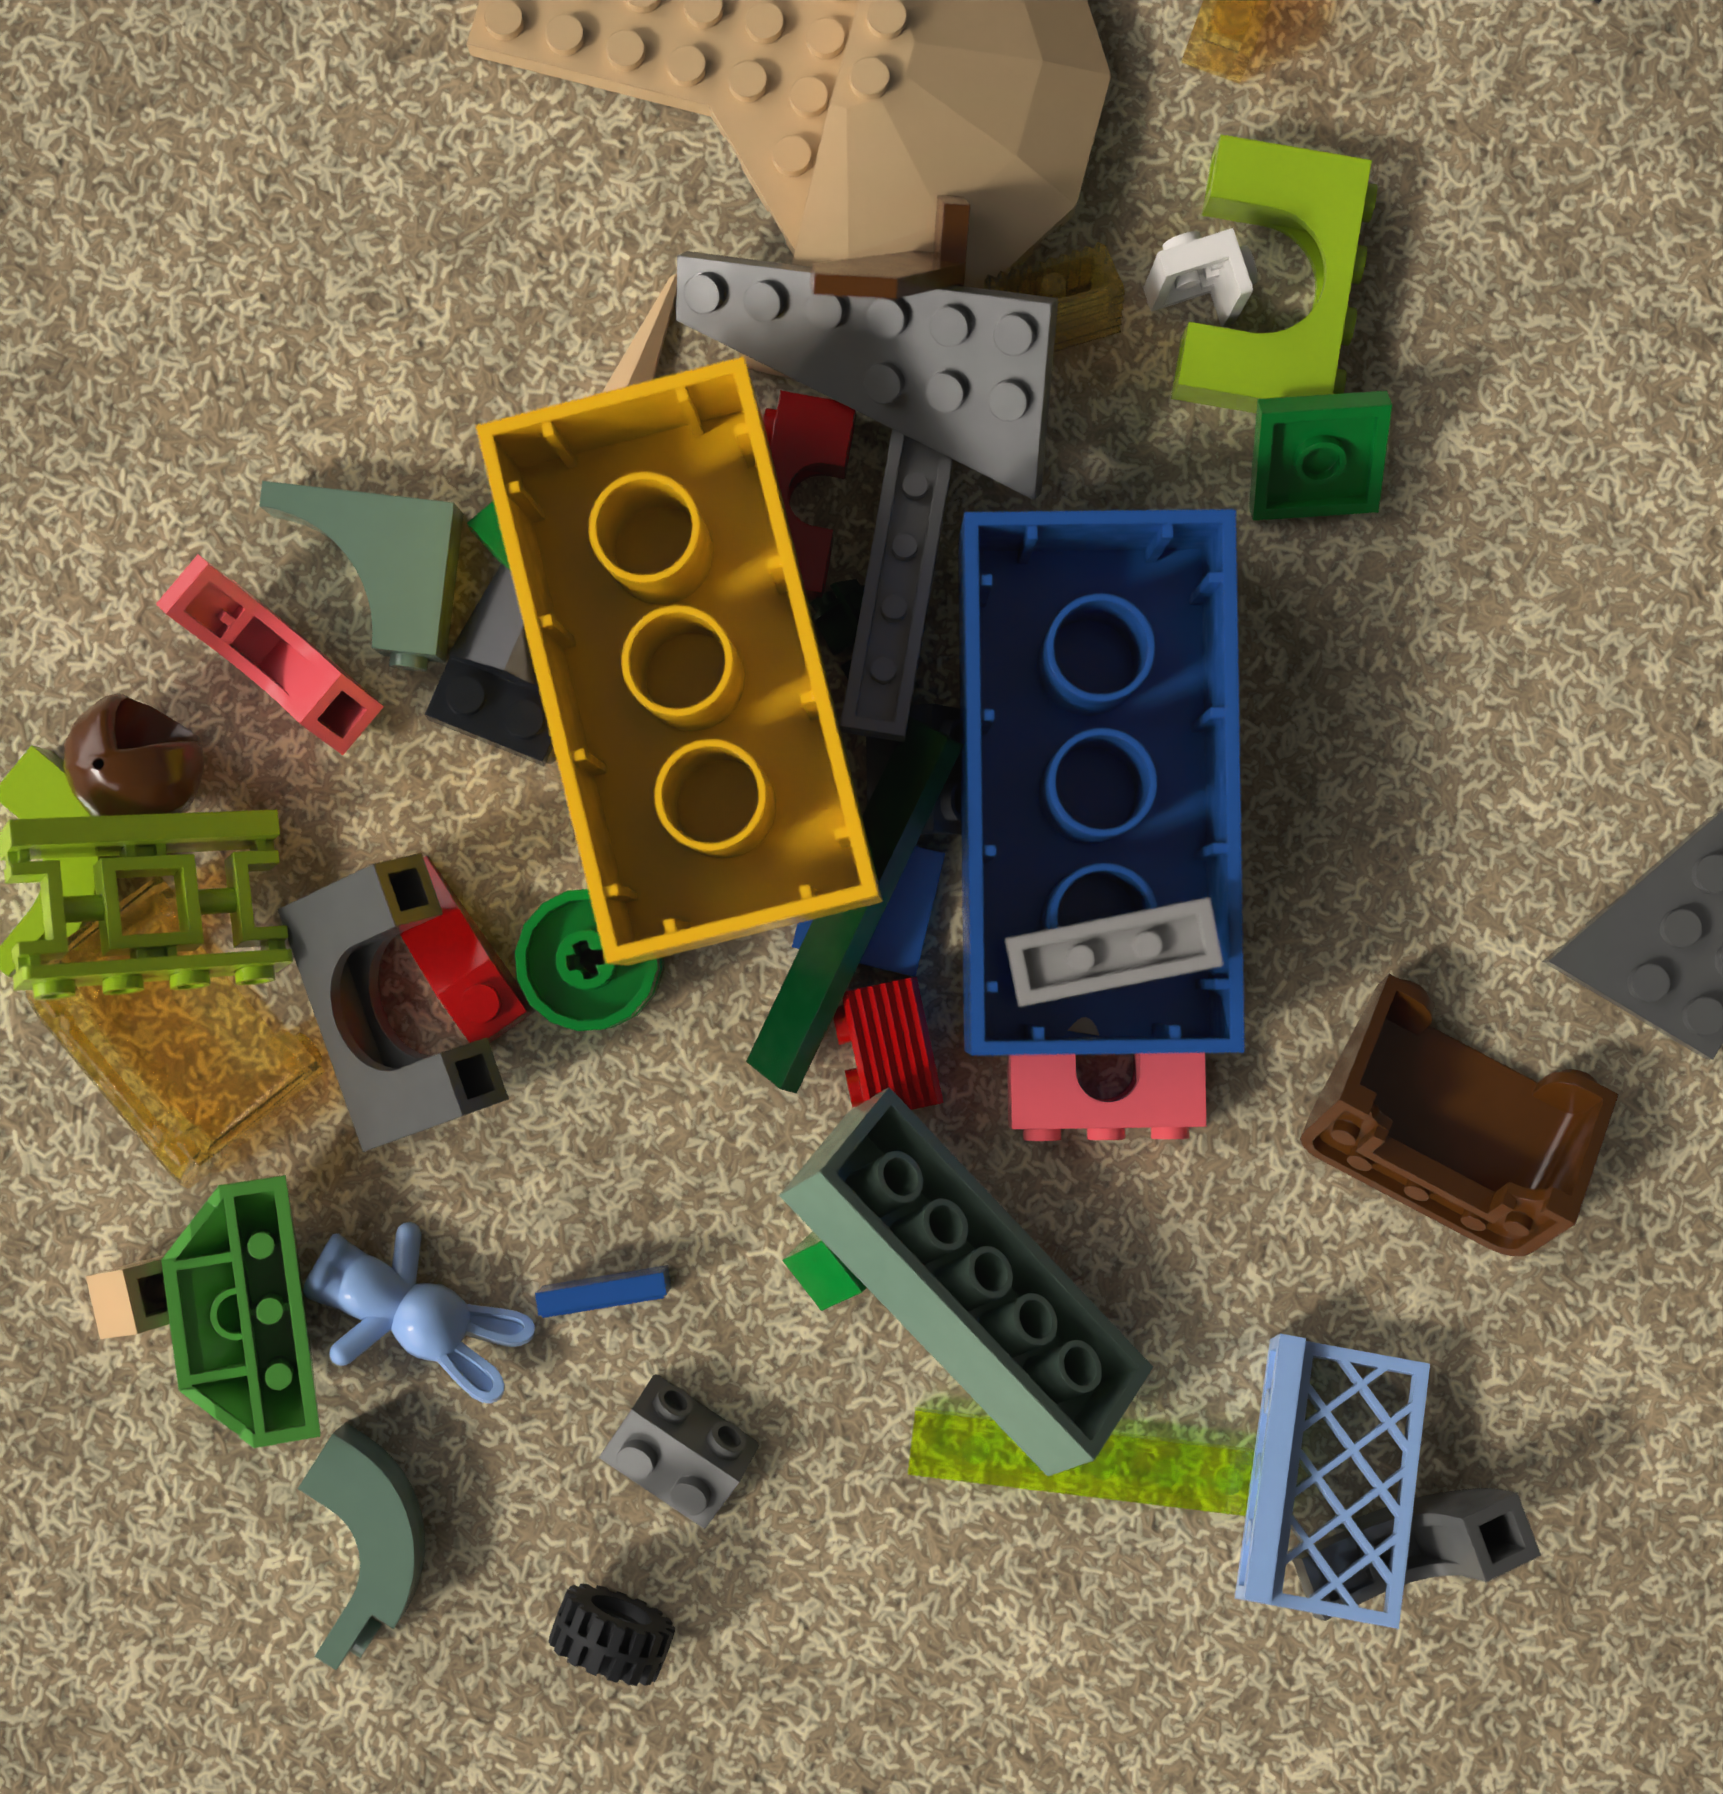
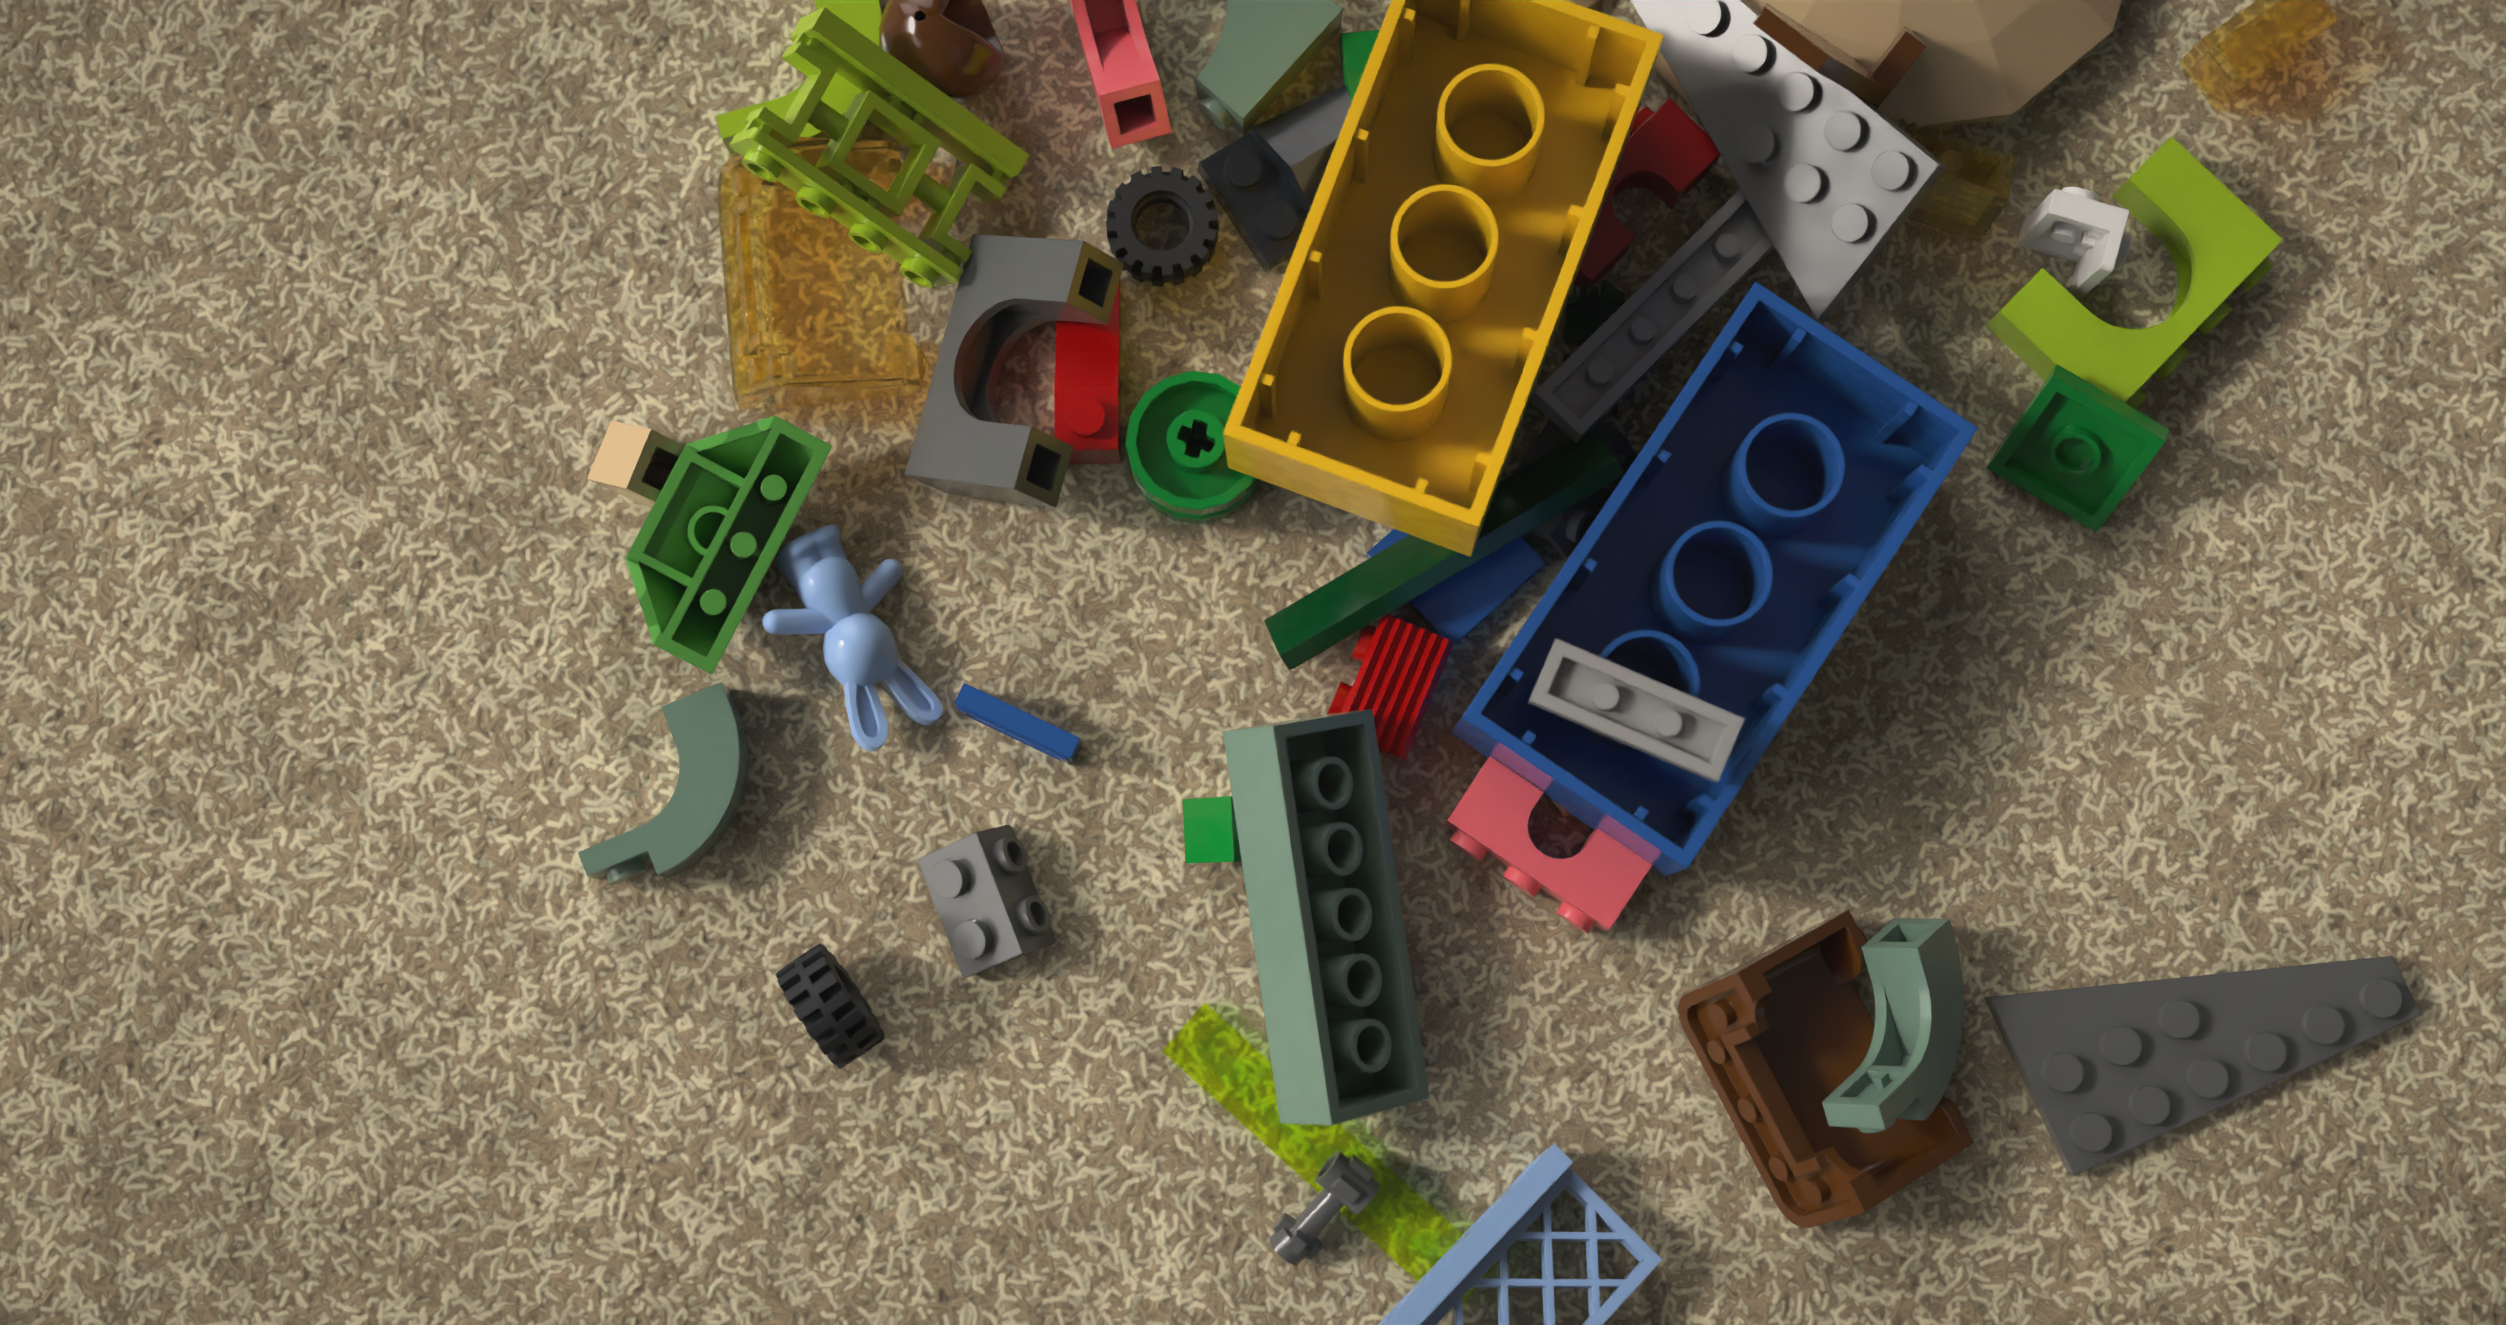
camera: 35 degrees right, 5 degrees down
(393, 779) = (1165, 188): none -> black tyre
(1130, 1483) = (1344, 1183): none -> dark grey bar
(1511, 1037) = (1915, 1028): none -> sand green arch

